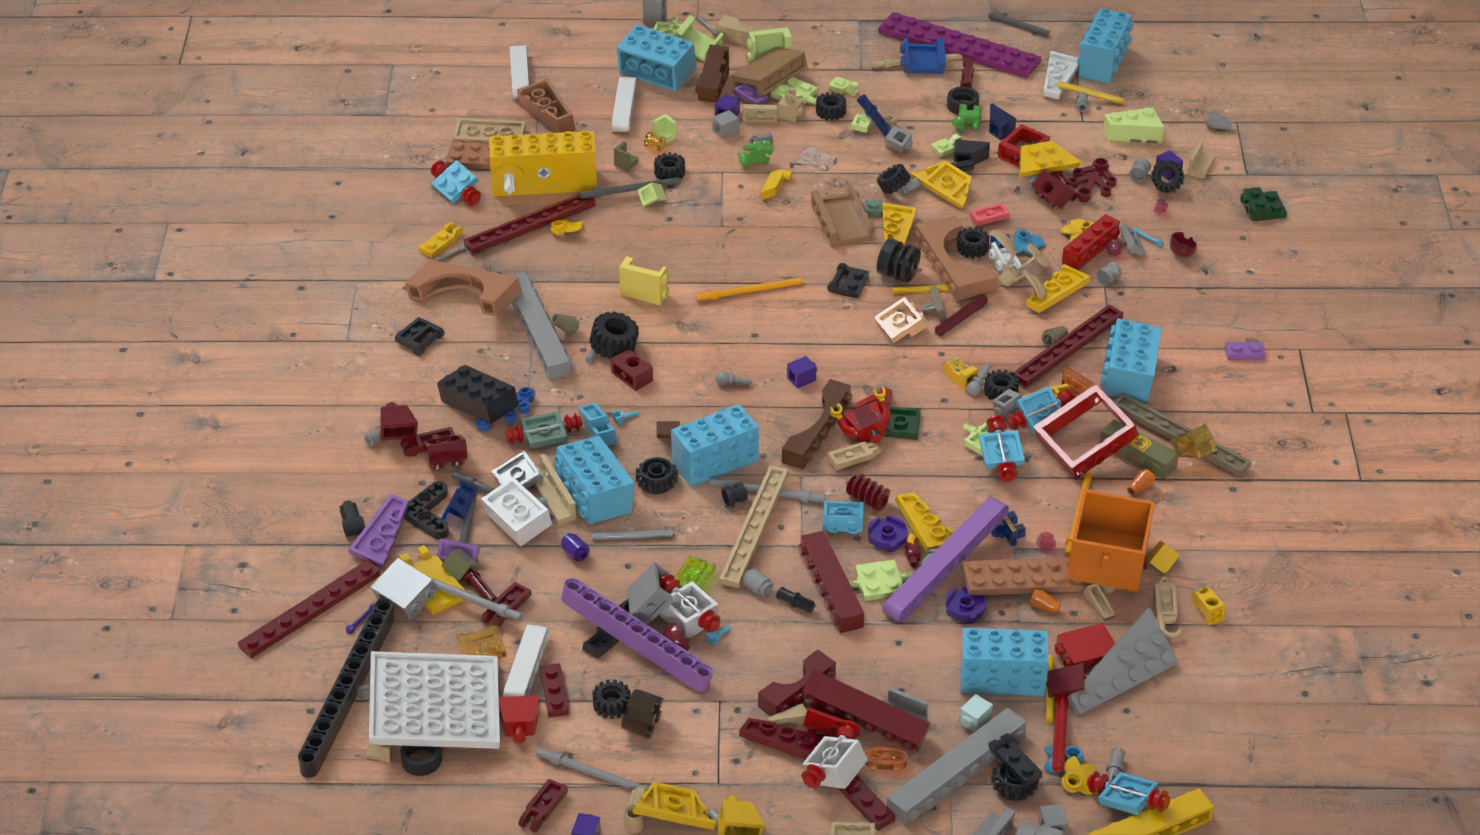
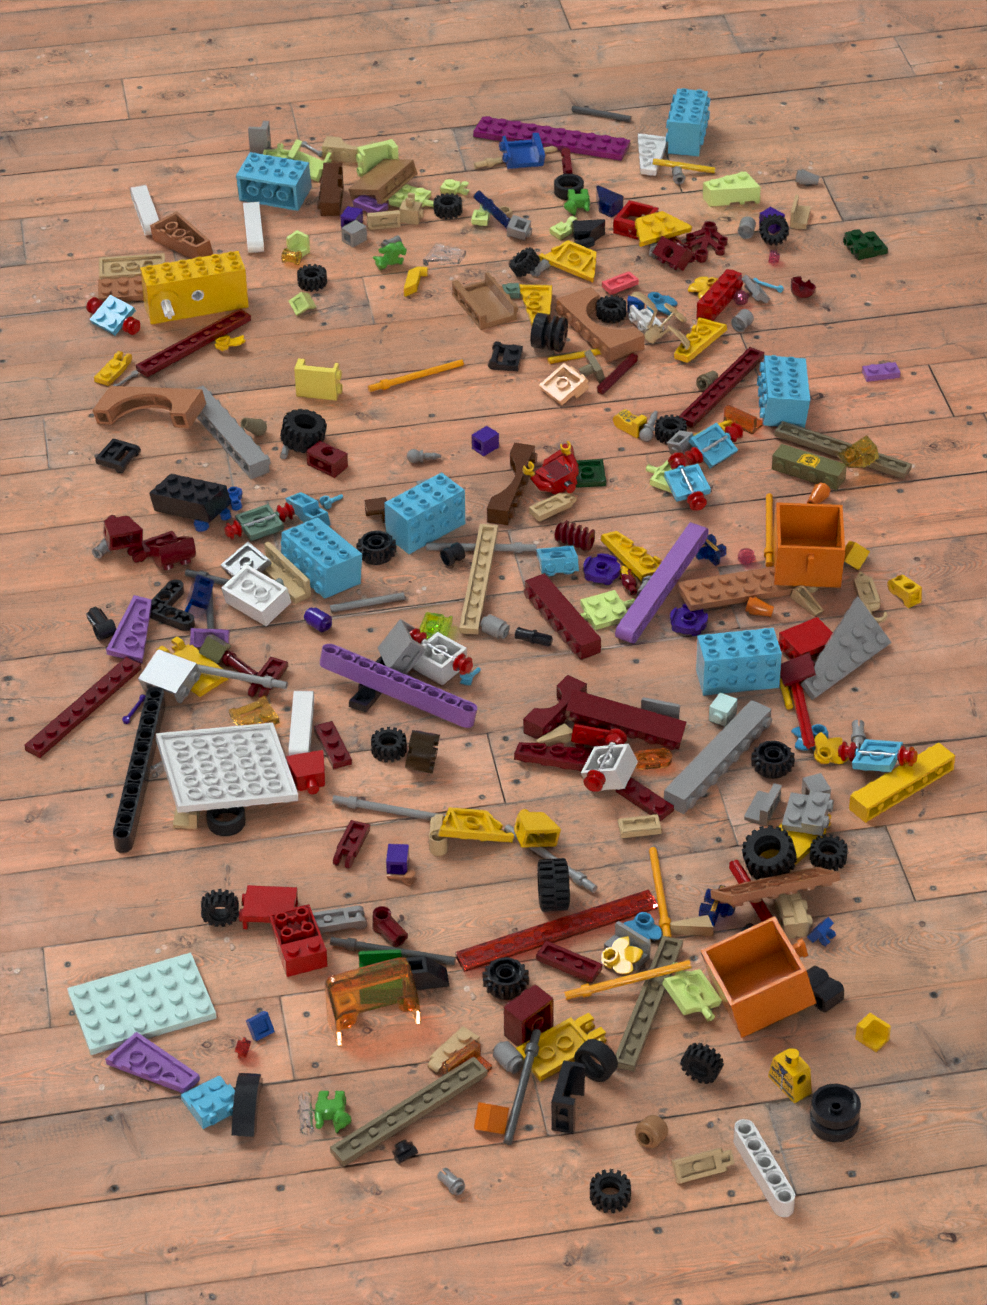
camera: 10 degrees left, 0 degrees up
(598, 192) = (252, 307): dark grey bar -> none
(623, 158) = (267, 275): olive panel -> none
(674, 633) = (434, 678): dark red hair -> none
(1015, 760) = (770, 742): black plate -> none
(1072, 411) = (744, 440): red window -> none

